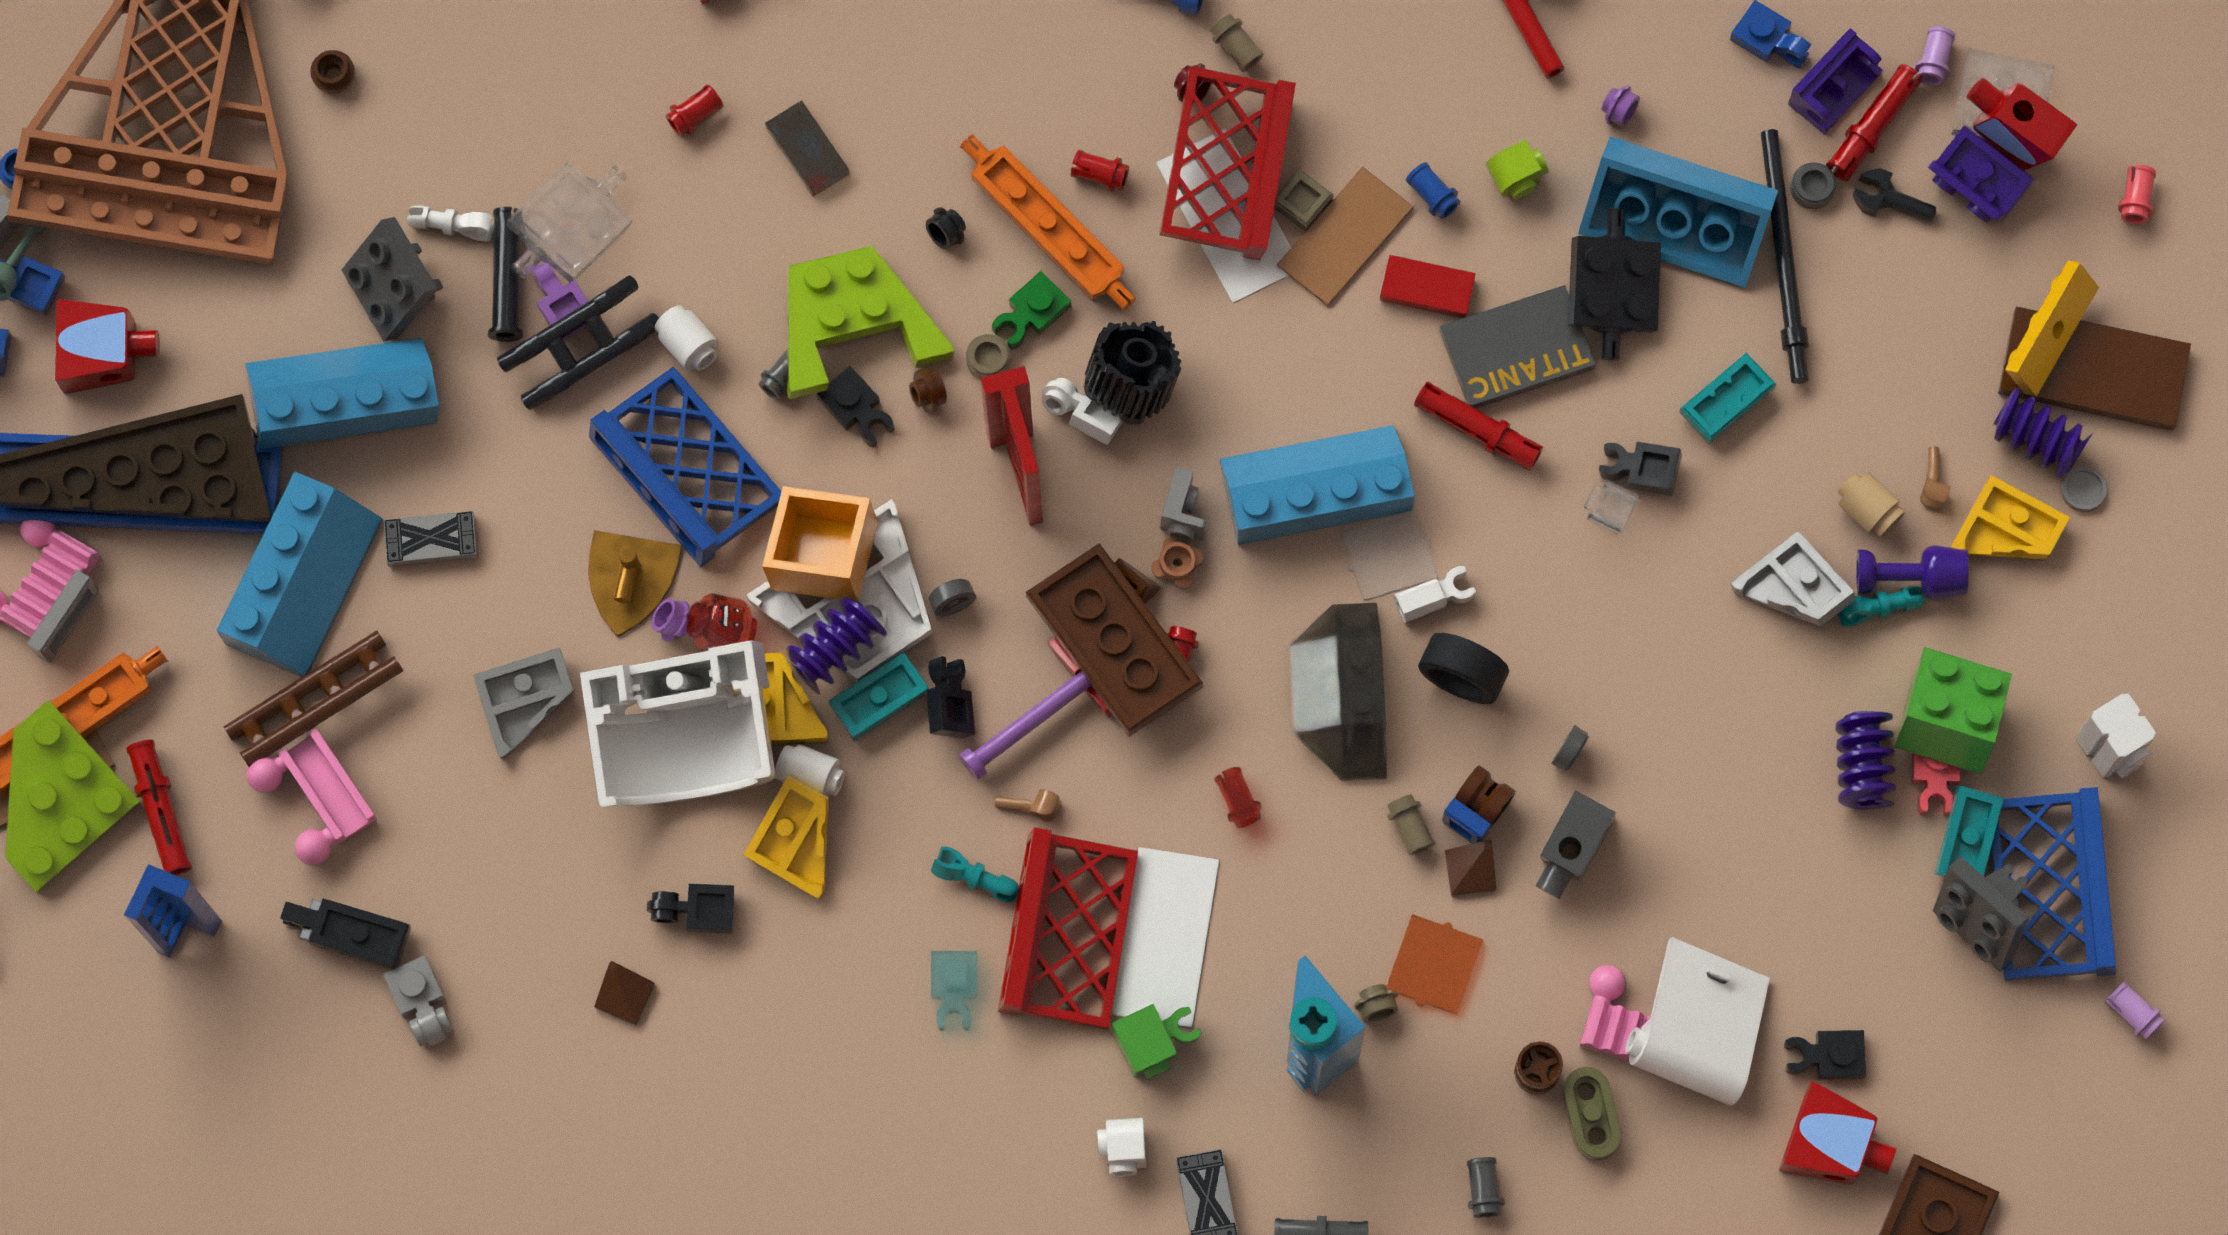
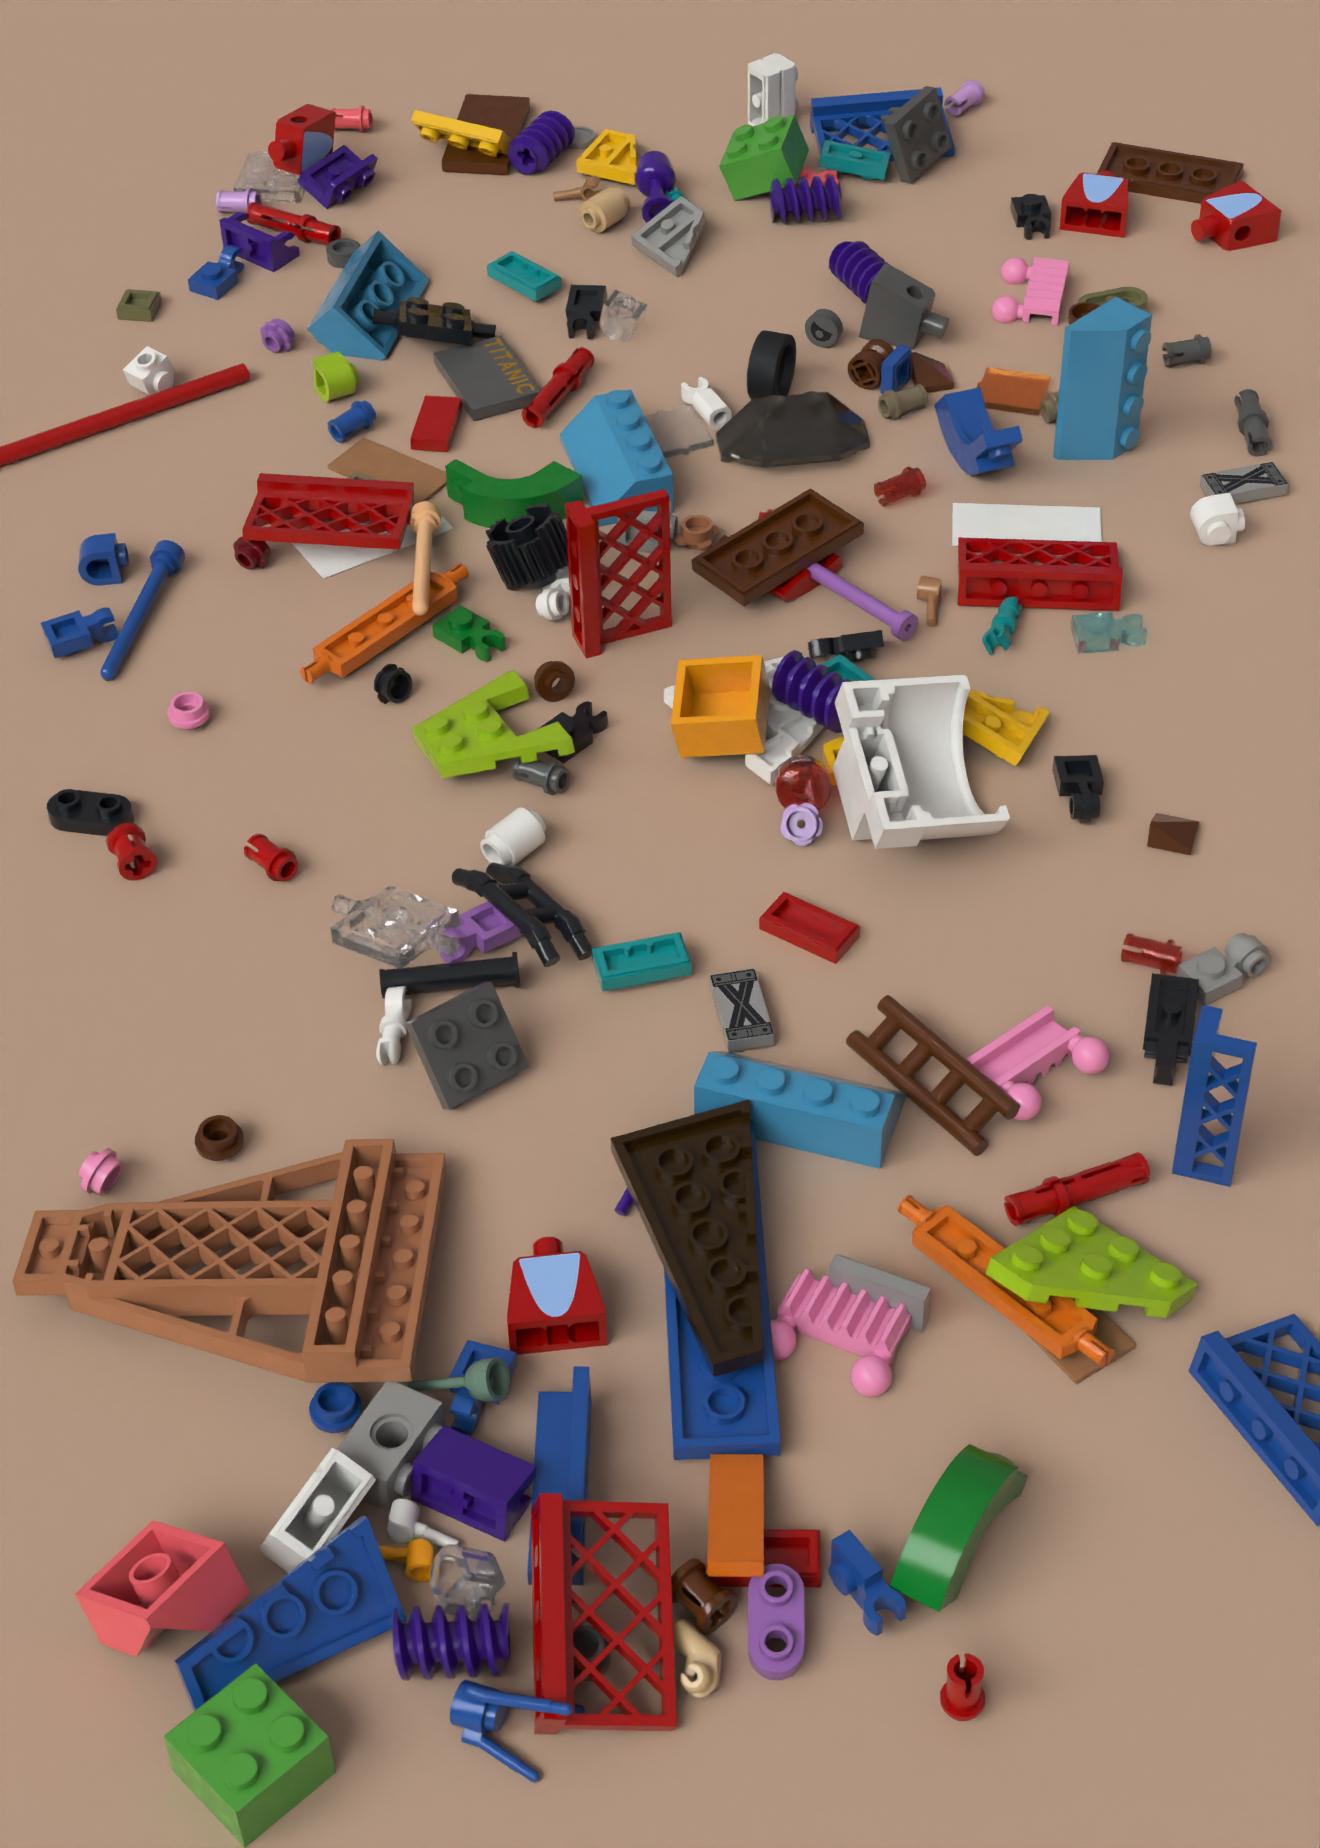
camera: 95 degrees left, 30 degrees down
(342, 393) = (592, 1070): dark azure slope -> none
(445, 934) = (1154, 953): none -> clear red pin
(501, 450) = (641, 961): none -> teal plate
(522, 696) = (897, 922): light grey wing -> none
(535, 614) = (809, 927): none -> red tile
(629, 577) = (758, 869): pearl gold shield -> none
(657, 489) = (655, 850): blue fence -> none
(807, 148) = (310, 785): clear smoke tile -> none
(925, 16) = (188, 711): none -> bright pink plate
(952, 597) = (748, 644): dark grey tile -> none
(987, 356) = (516, 655): dark tan tile -> none
(1100, 170) = (337, 591): red pin -> none
(1147, 1039) = (1123, 513): bright green brick -> none
(1219, 266) = (424, 521): none -> light nougat piece
(1236, 42) = (204, 534): dark tan pin -> none
(1248, 391) = (492, 499): none -> green arch
(1305, 894) = (971, 434): none -> blue arch
(1312, 1033) = (1125, 307): teal wheel -> none
(1678, 811) = (855, 266): none -> dark purple piece
(1701, 1023) = (1055, 249): white door -> none
(1794, 335) = (471, 252): black bar -> none
(1889, 197) = (355, 222): black bar -> none

